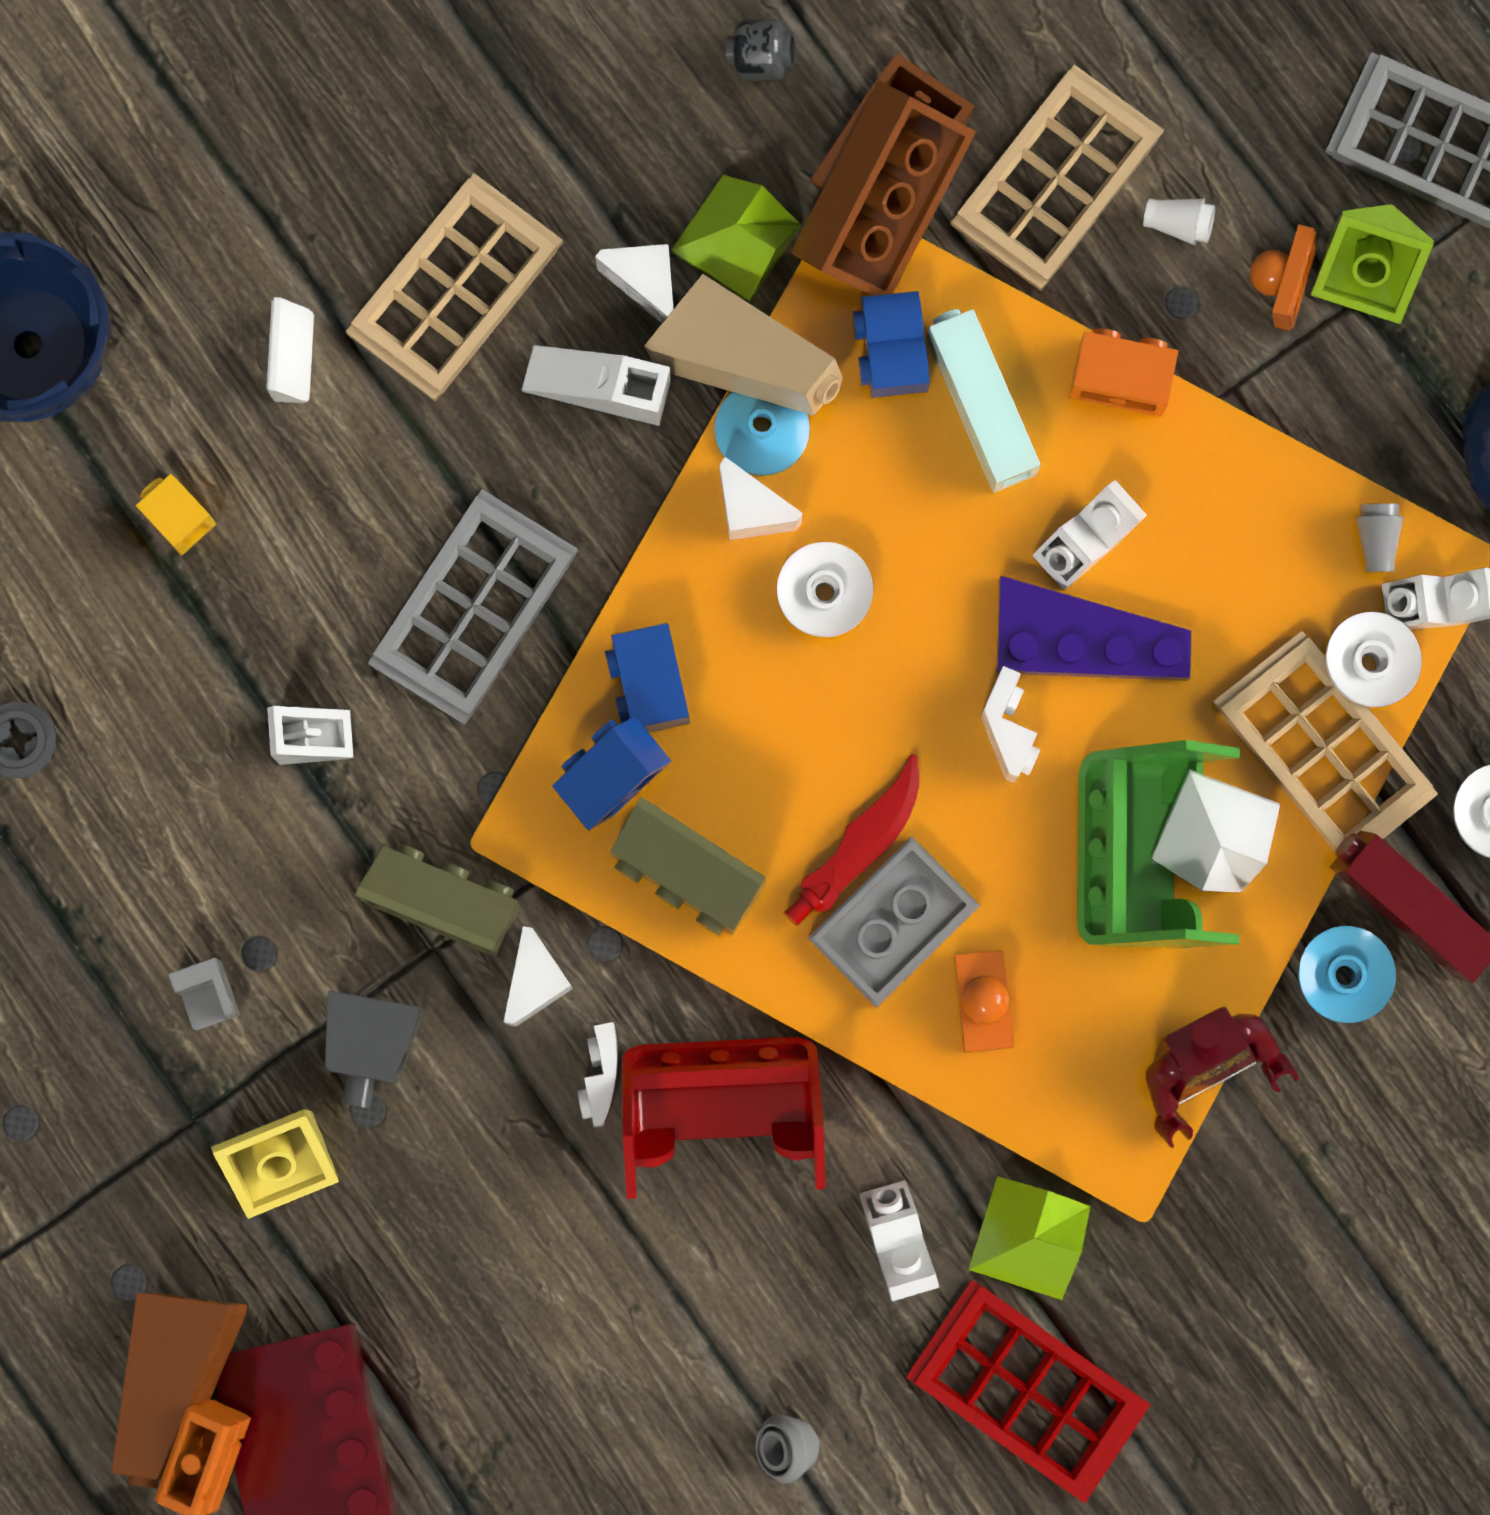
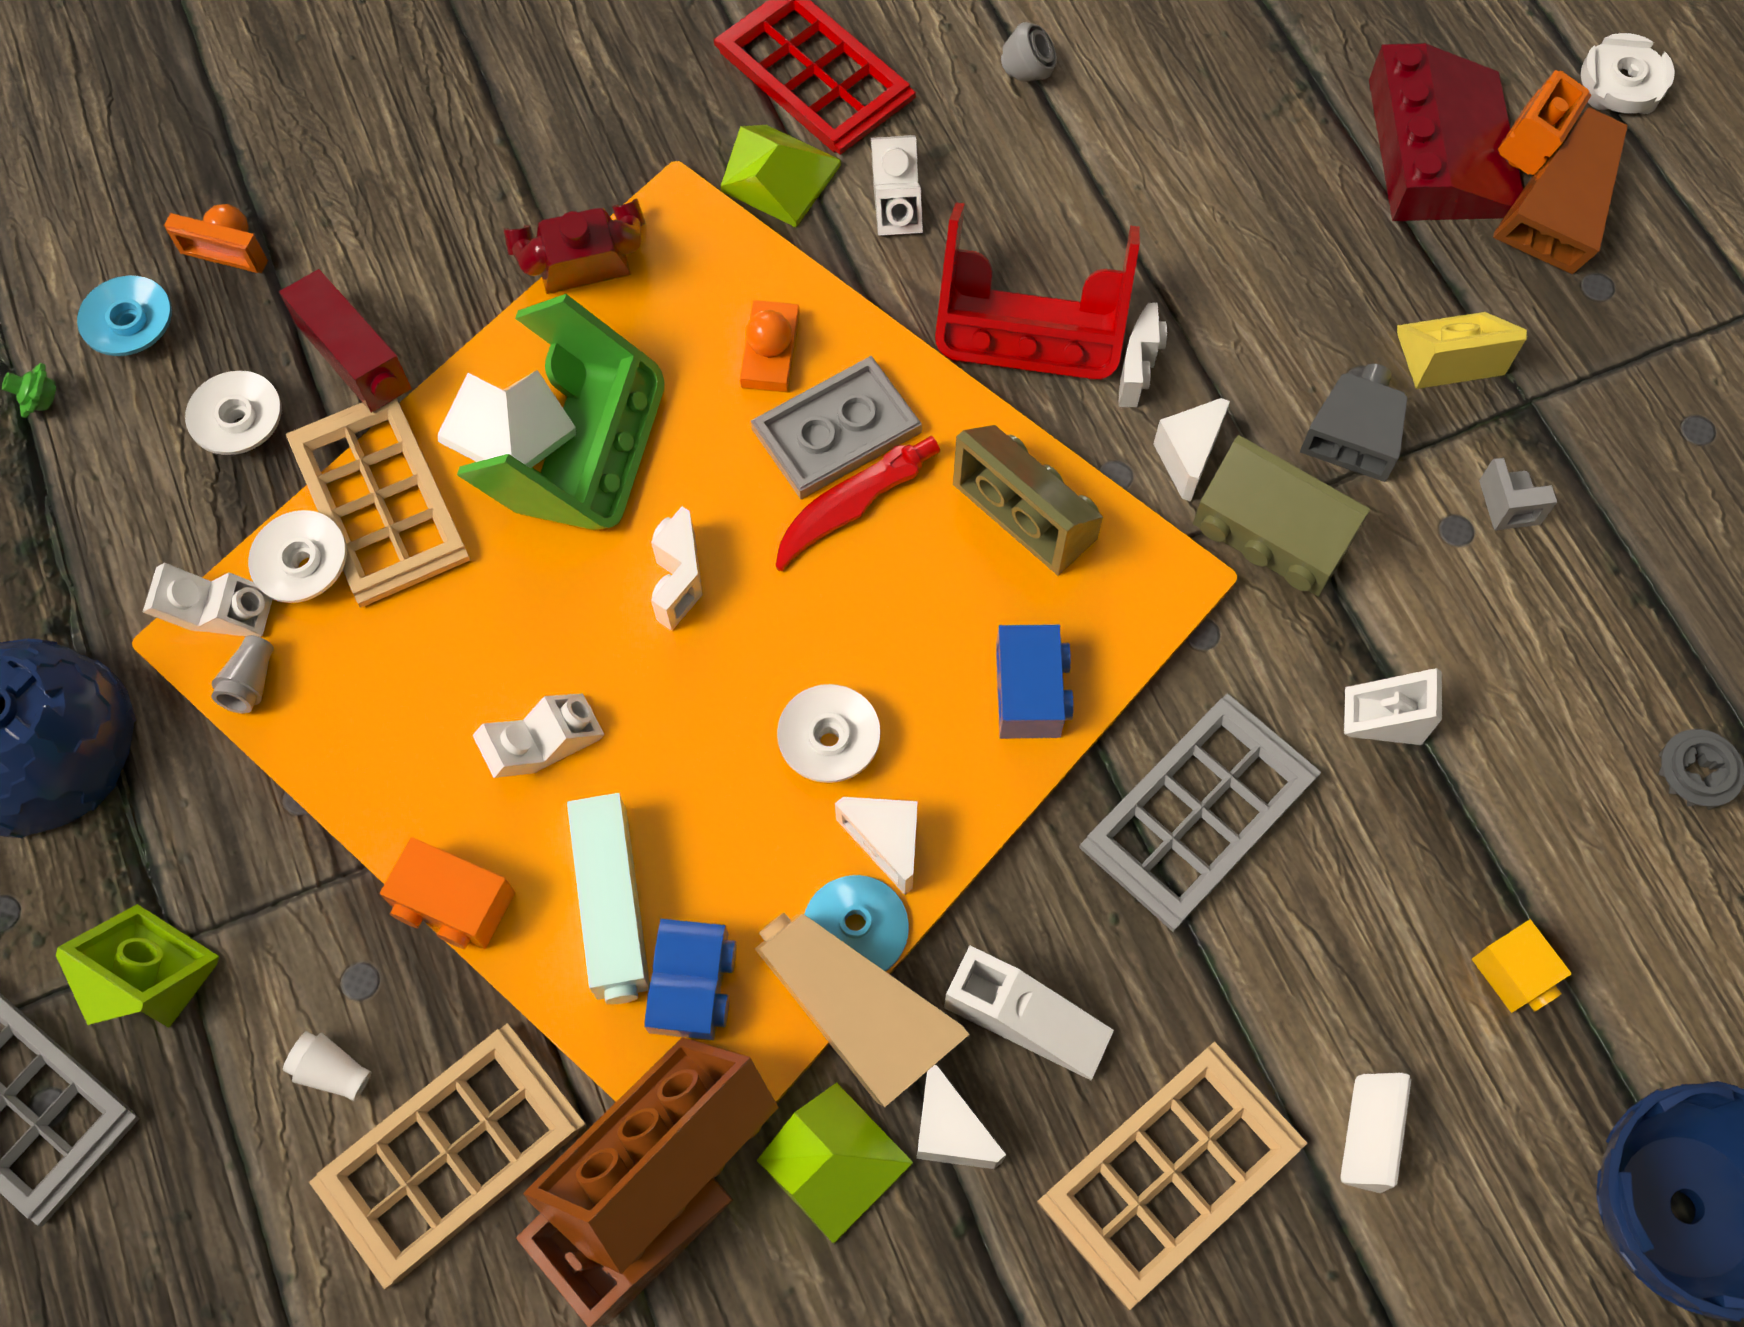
camera: 165 degrees left, 15 degrees down
(611, 772) = (1088, 588): blue brick -> none
(1080, 638) = (595, 646): dark purple wing -> none
(1285, 276) = (235, 974): orange tile -> none
(1370, 967) = (425, 295): medium azure dish -> none

